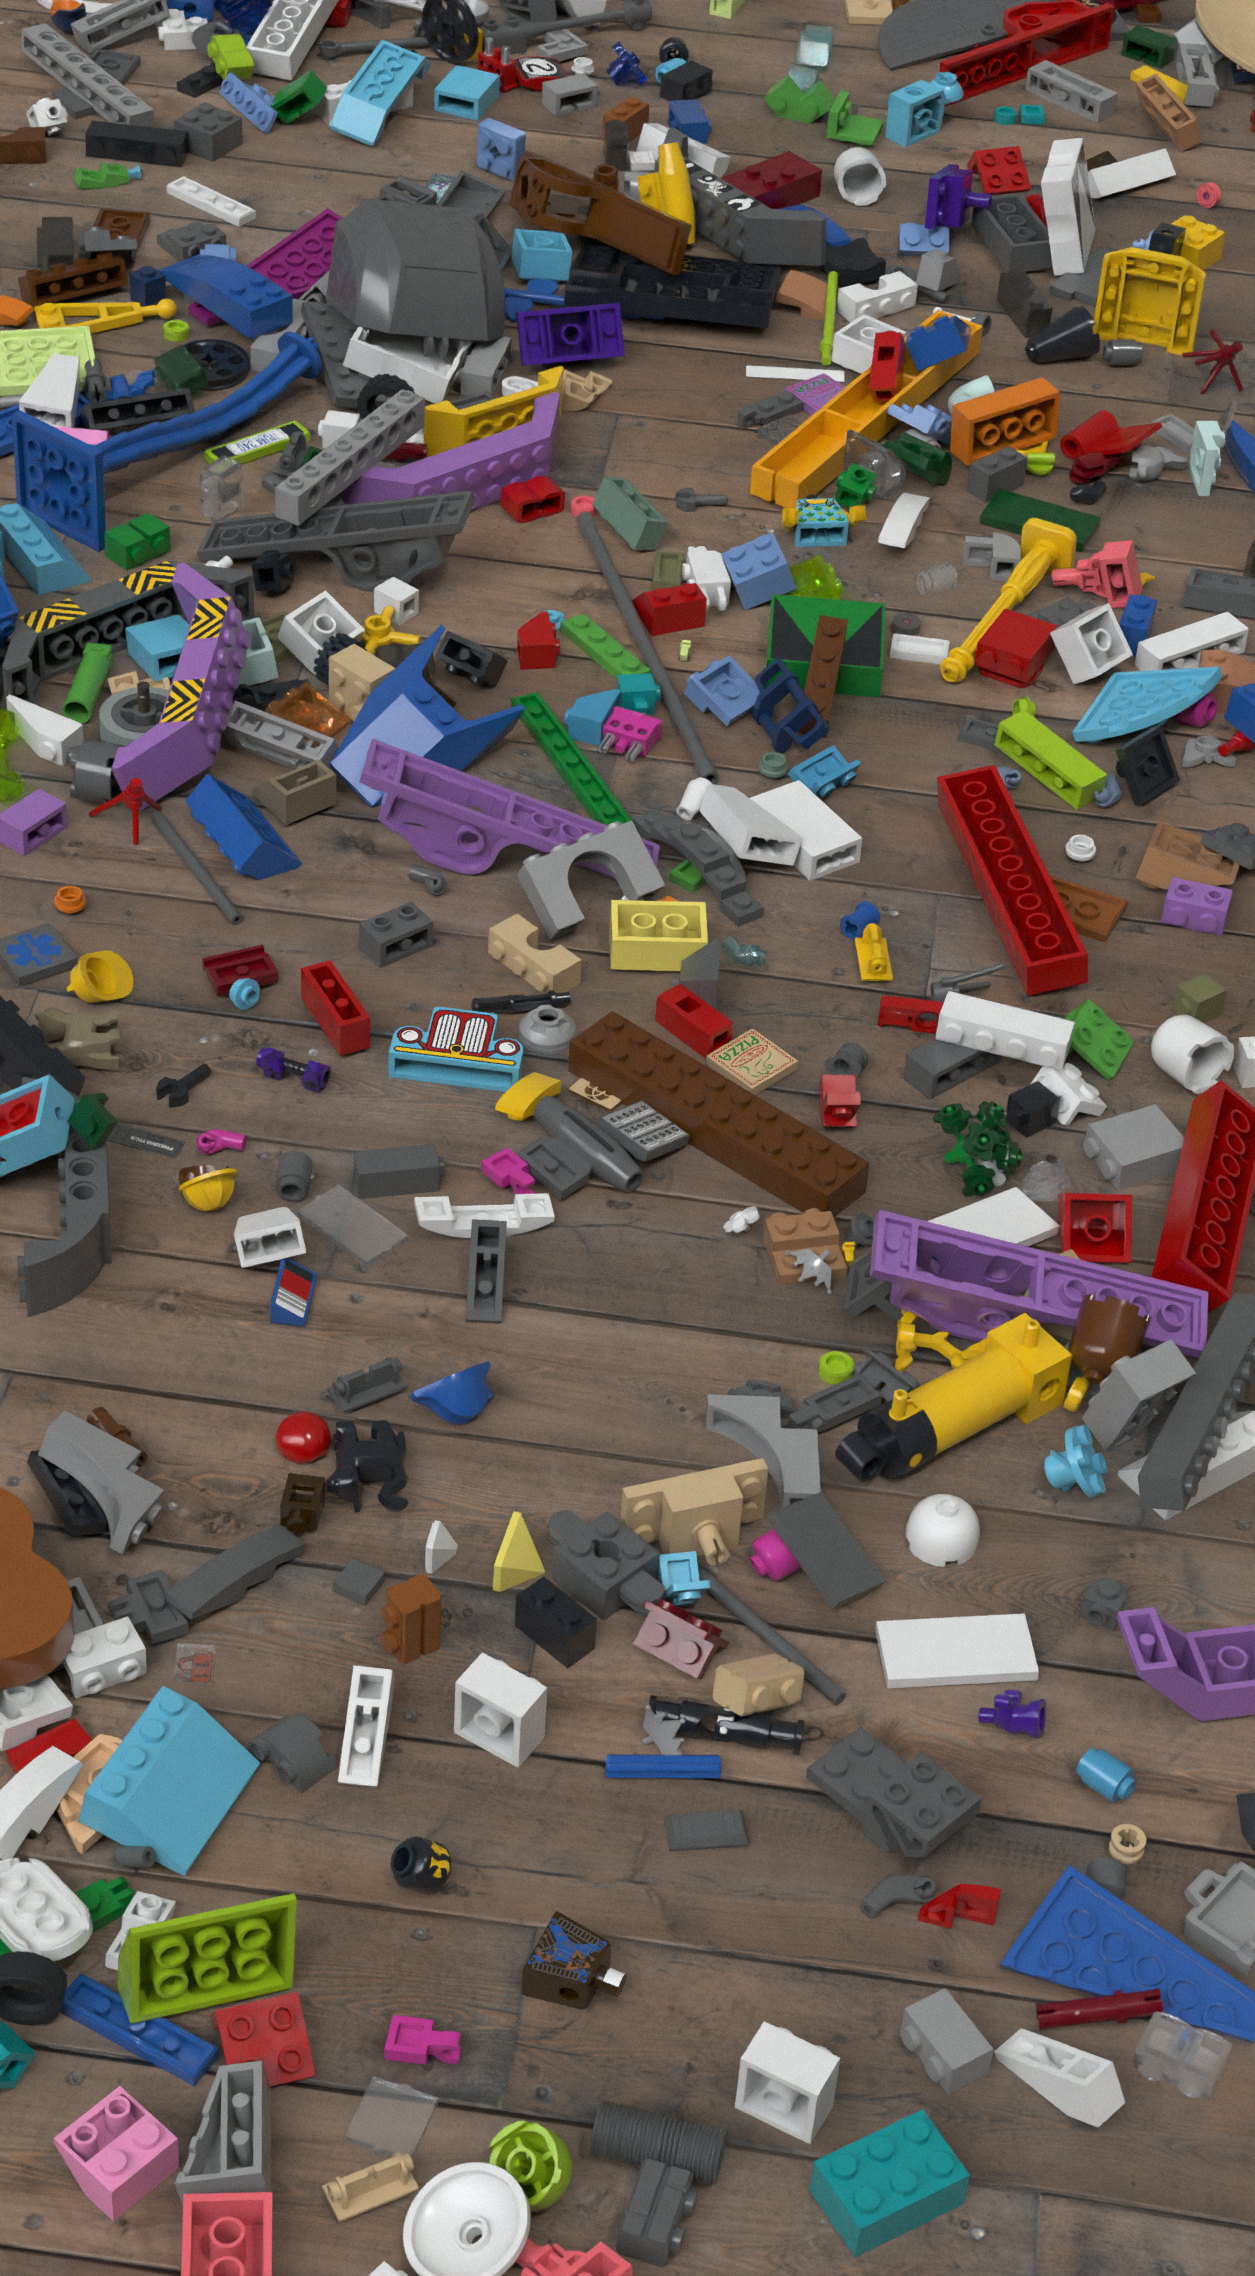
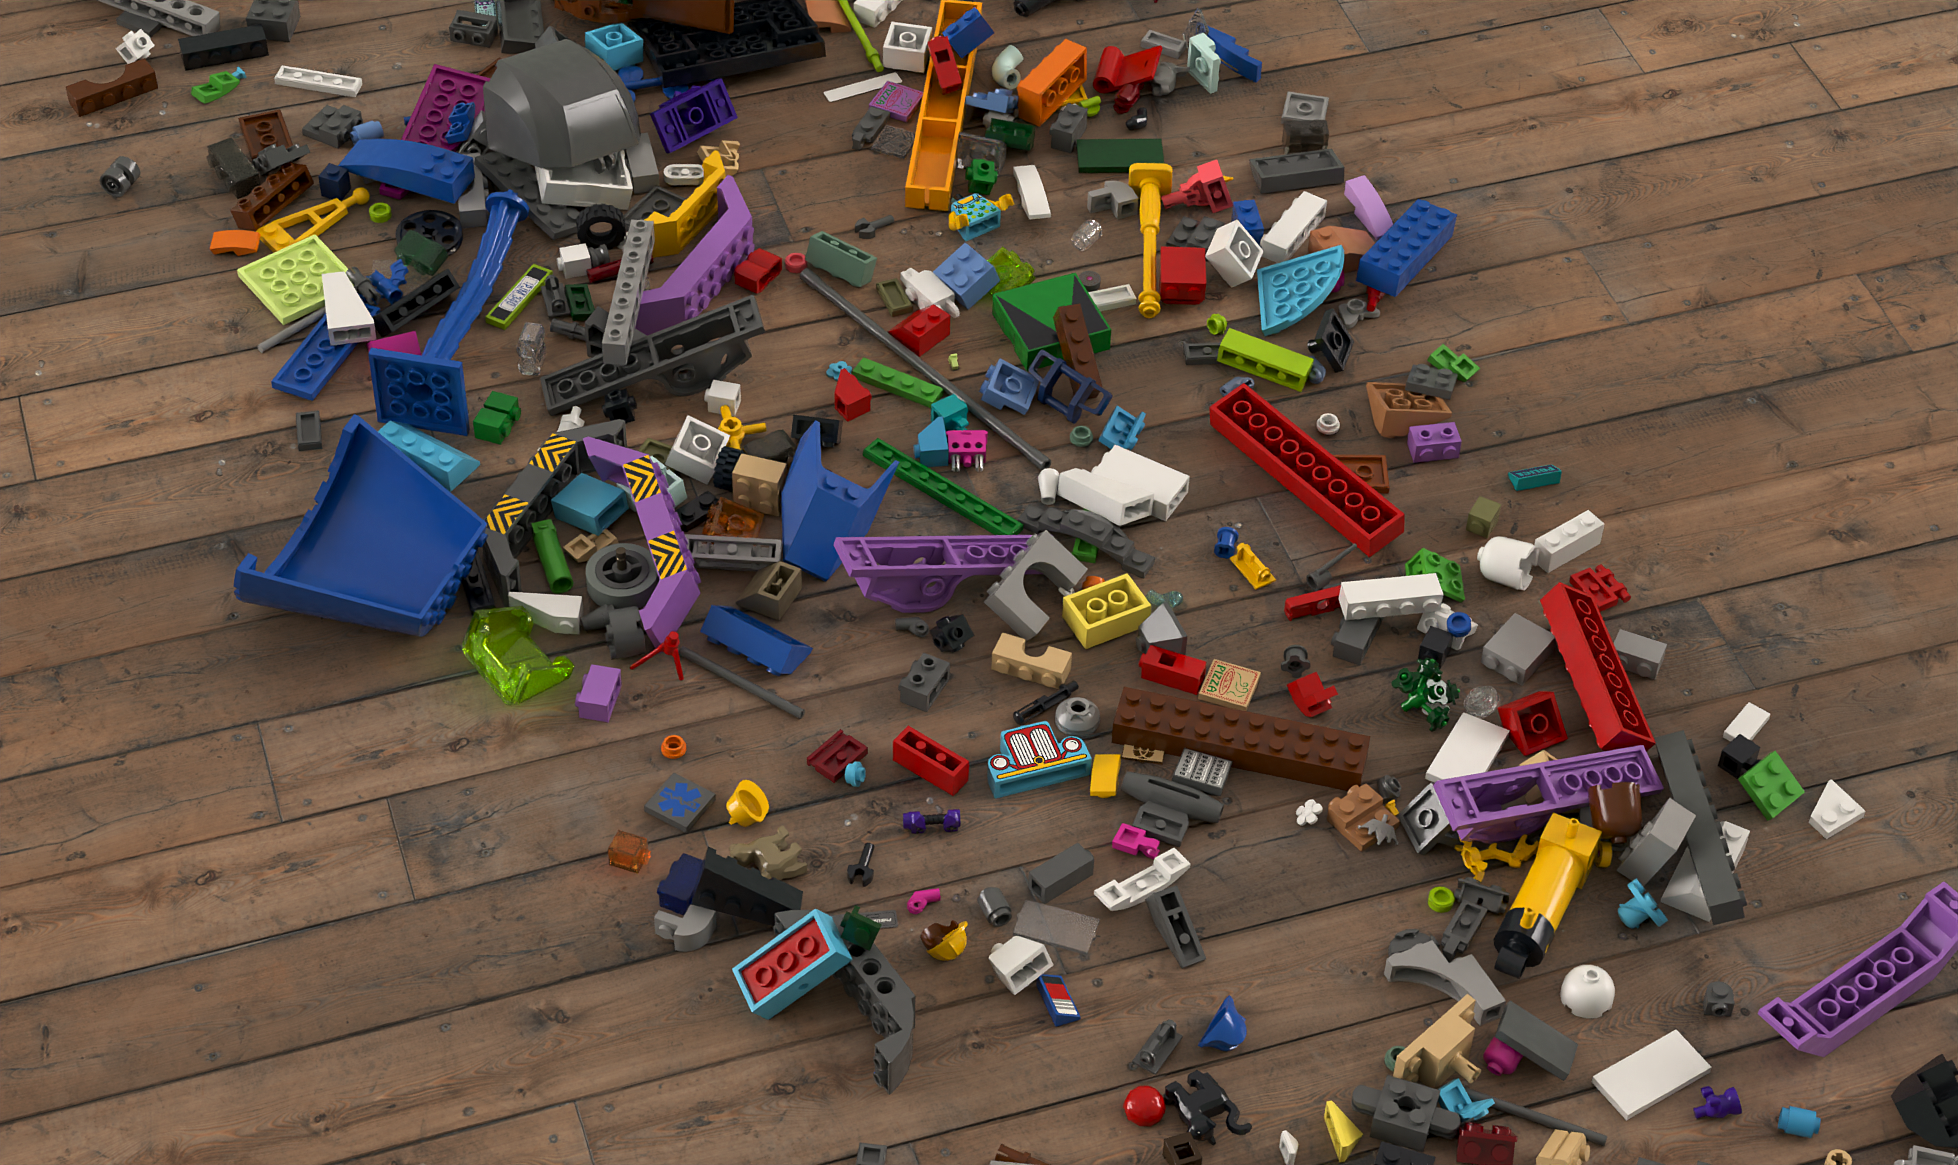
camera: 25 degrees left, 5 degrees up
(314, 268) = (462, 122): none -> blue slope
(471, 893) = (951, 633): none -> black brick
(1072, 1090) = (1459, 624): none -> blue tile

